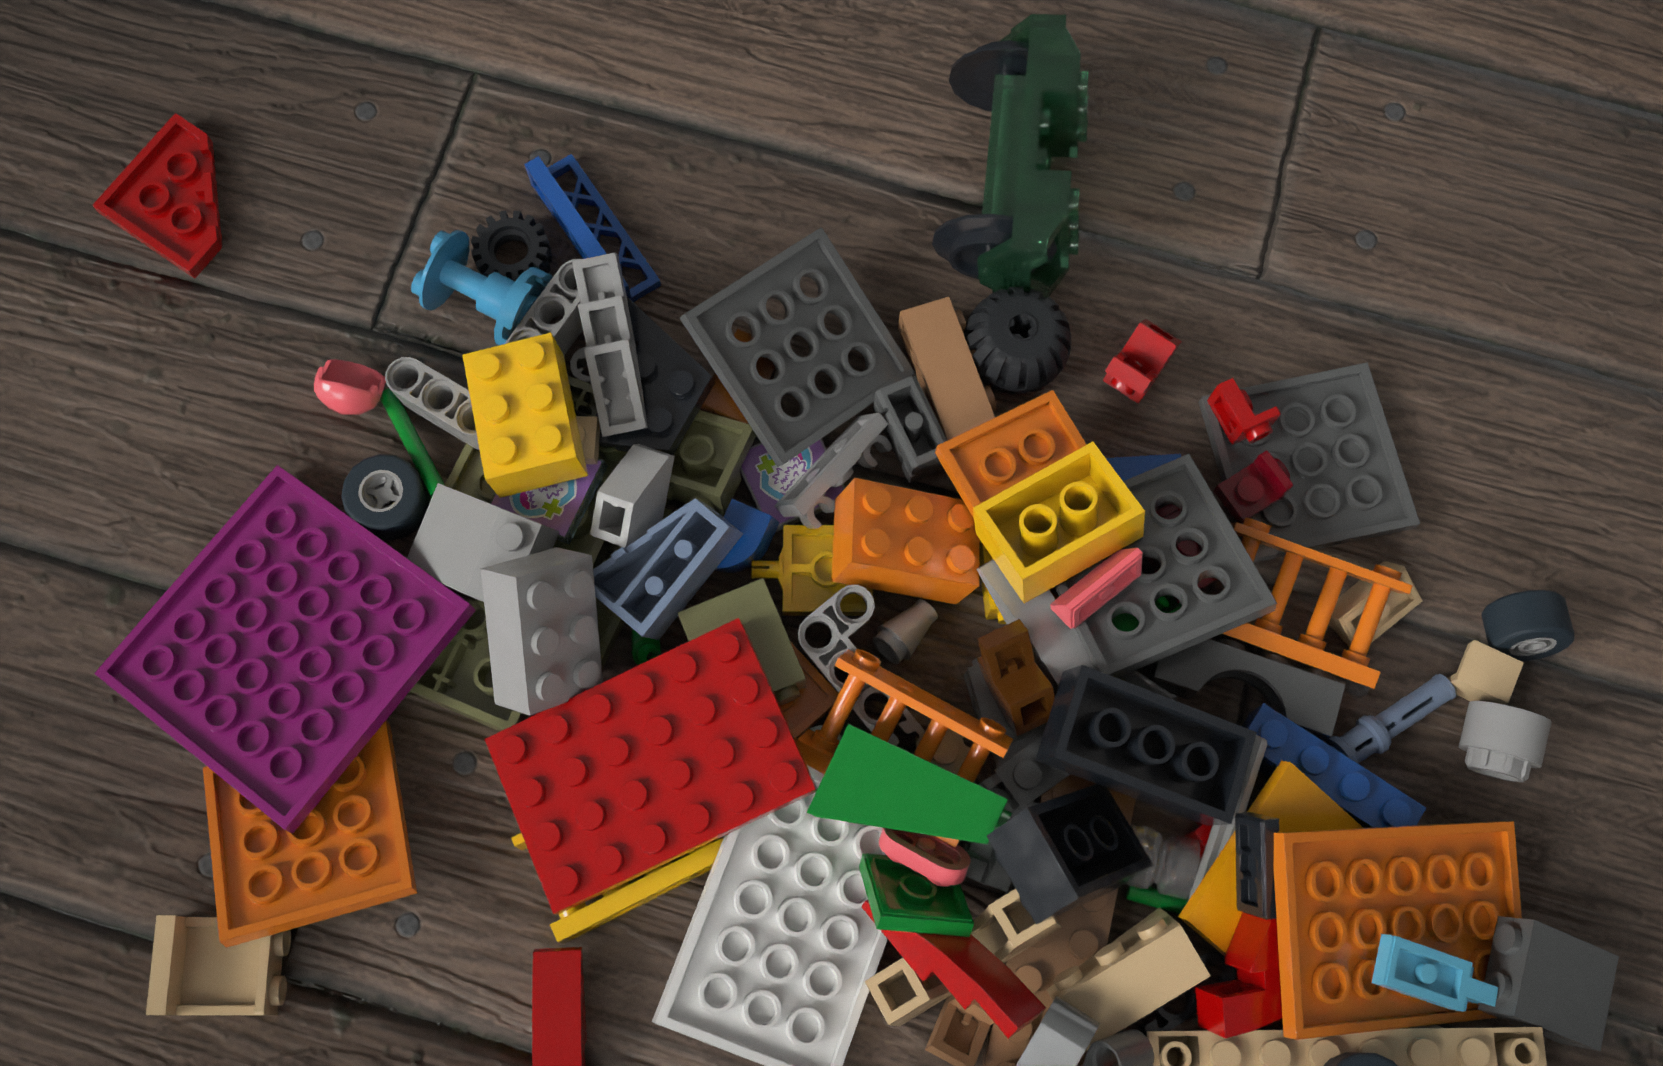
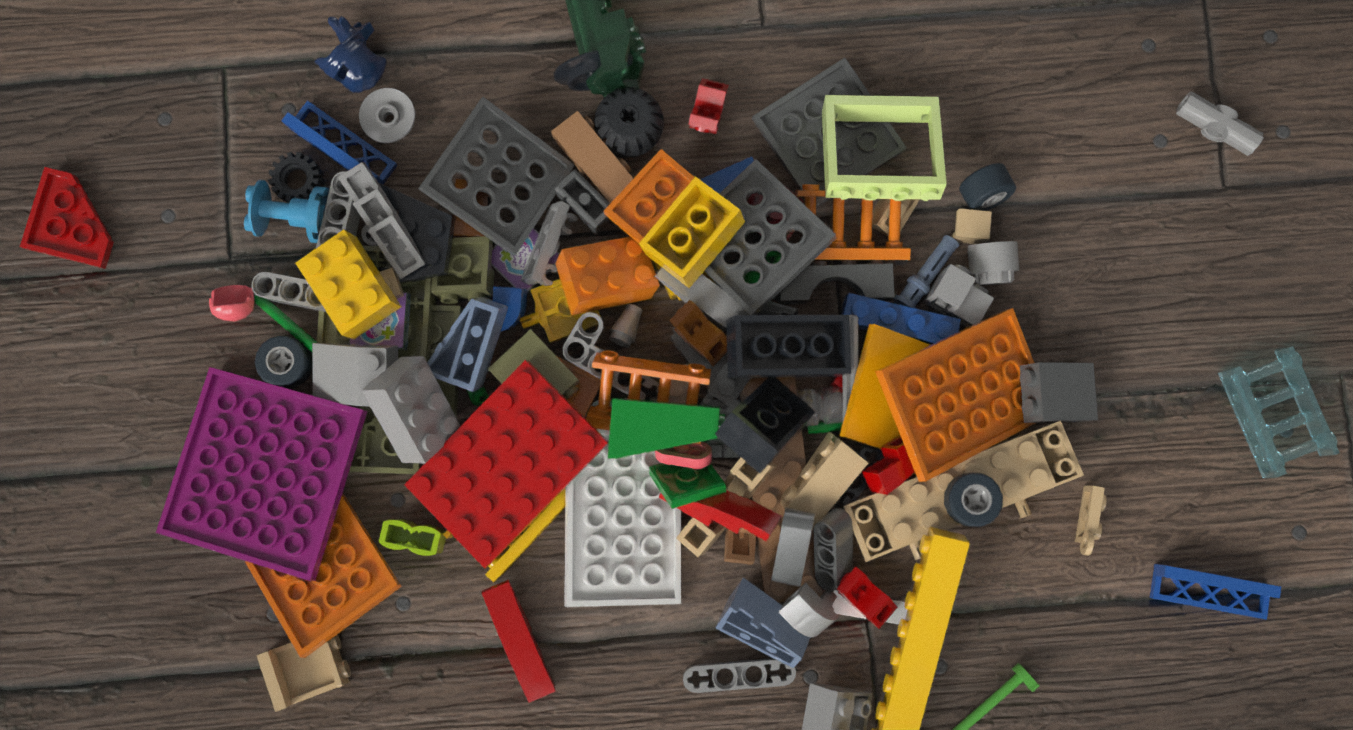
camera: 20 degrees left, 10 degrees up
(458, 820) = (405, 534): none -> lime brick
(632, 496) = (433, 308): light grey slope -> none
(655, 118) = (352, 60): none -> dark blue piece
(670, 195) = (380, 105): none -> light grey dish
(1098, 587) = (729, 262): coral slope -> none
(1236, 415) = (776, 122): red bracket -> none
(1254, 945) = (886, 435): red slope -> none
(1255, 487) = (802, 163): dark red bracket -> none
(1255, 864) = (872, 391): black plate -> none
(1405, 455) = (883, 109): none -> yellowish green window
(1428, 769) = (957, 296): none -> light grey brick
(1429, 975) = (989, 416): medium azure hinge -> none

